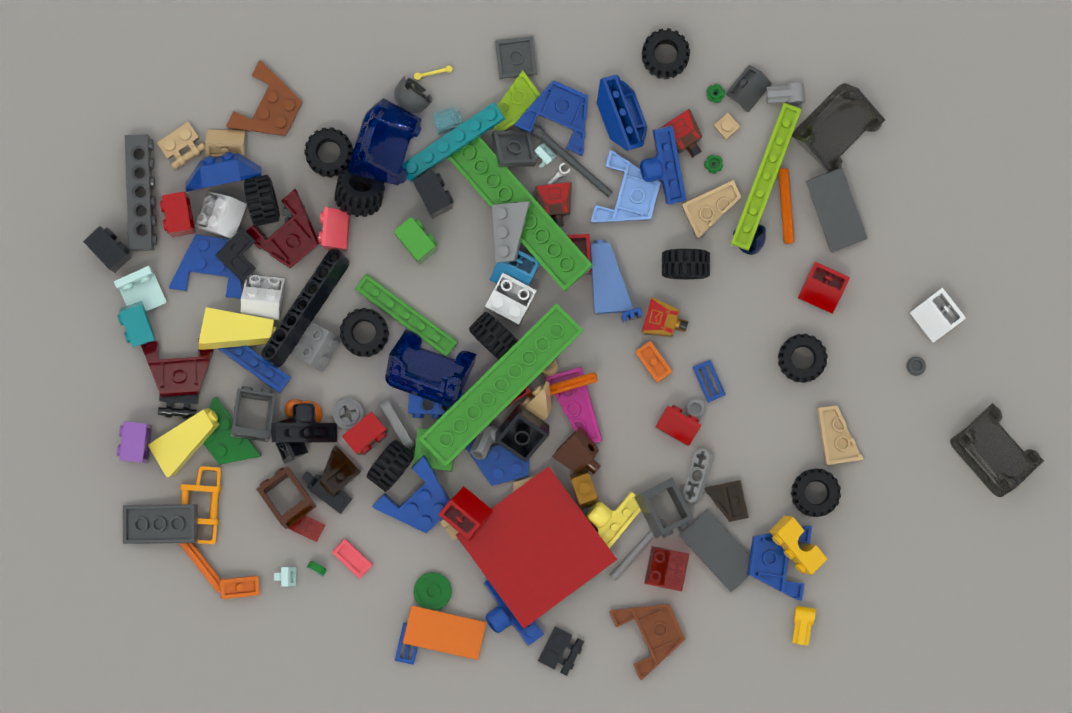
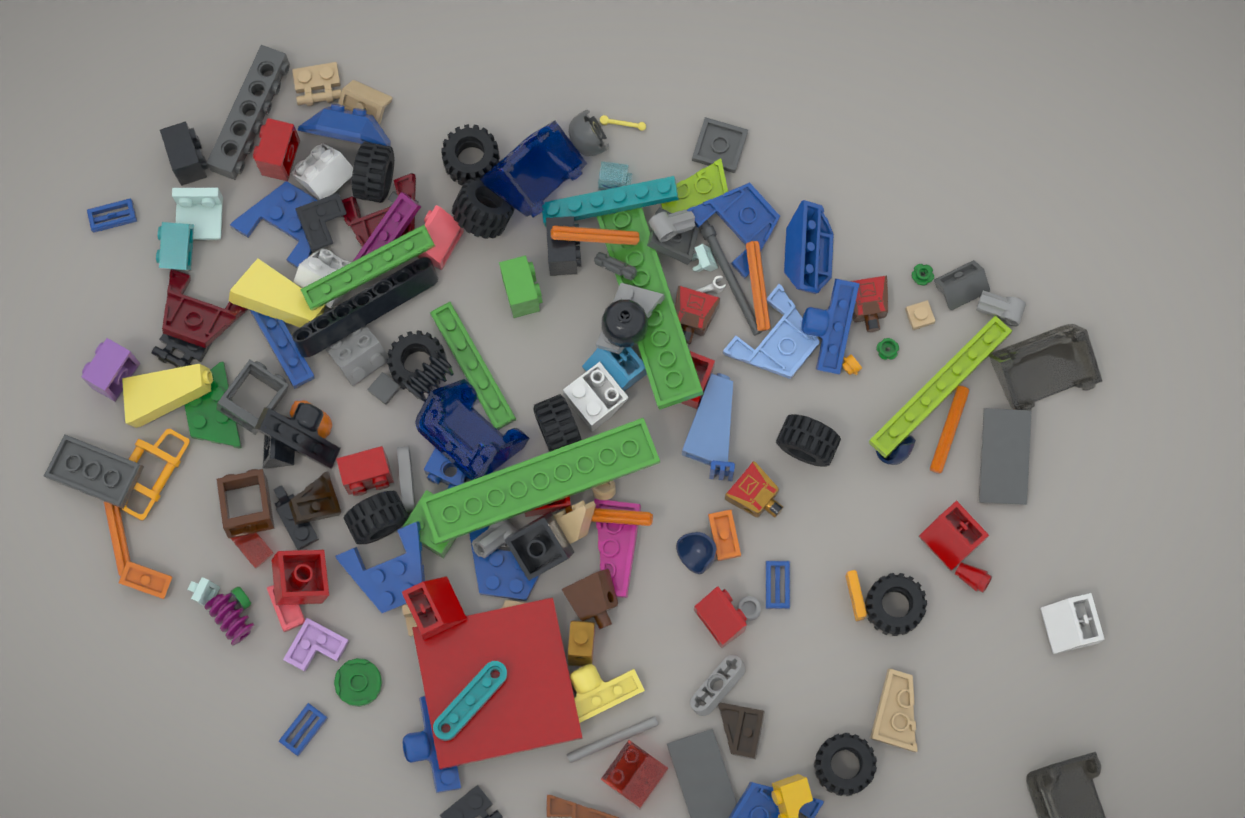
camera: 20 degrees right, 10 degrees down
(70, 323) = (113, 223): none -> blue tile
(275, 110) = (433, 91): dark orange wing -> none
(295, 246) = (392, 224): none -> magenta plate
(295, 279) = (367, 267): none -> bright green tile
(316, 586) = (229, 617): none -> magenta piece
(339, 410) = (351, 435): flat silver gear -> none
(347, 363) = (384, 388): none -> dark grey tile
(354, 534) = (300, 577): none -> red brick
(382, 343) = (429, 376): none -> black piece
(385, 573) = (311, 639): none -> lavender plate
(444, 632) = (348, 734): orange tile -> none
(456, 177) = (594, 235): none -> orange axle
(482, 193) = (615, 266): none -> dark grey axle
(509, 143) = (668, 225): none -> light grey piece
(510, 246) = (624, 323): none -> black cylinder
(524, 570) = (470, 700): none -> teal plate
(595, 159) = (758, 286): none -> orange axle
(639, 383) = (696, 551): none -> dark blue helmet
(650, 514) = (643, 705): dark grey window -> none
(665, 37) = (888, 190): black tyre -> none
(691, 189) = (851, 365): none -> light orange plate
(710, 206) = (863, 392): tan wing -> none
(770, 364) = (856, 595): none -> light orange tile
(851, 311) = (974, 577): none -> red cone
(915, 366) = (1022, 671): dark grey plate -> none

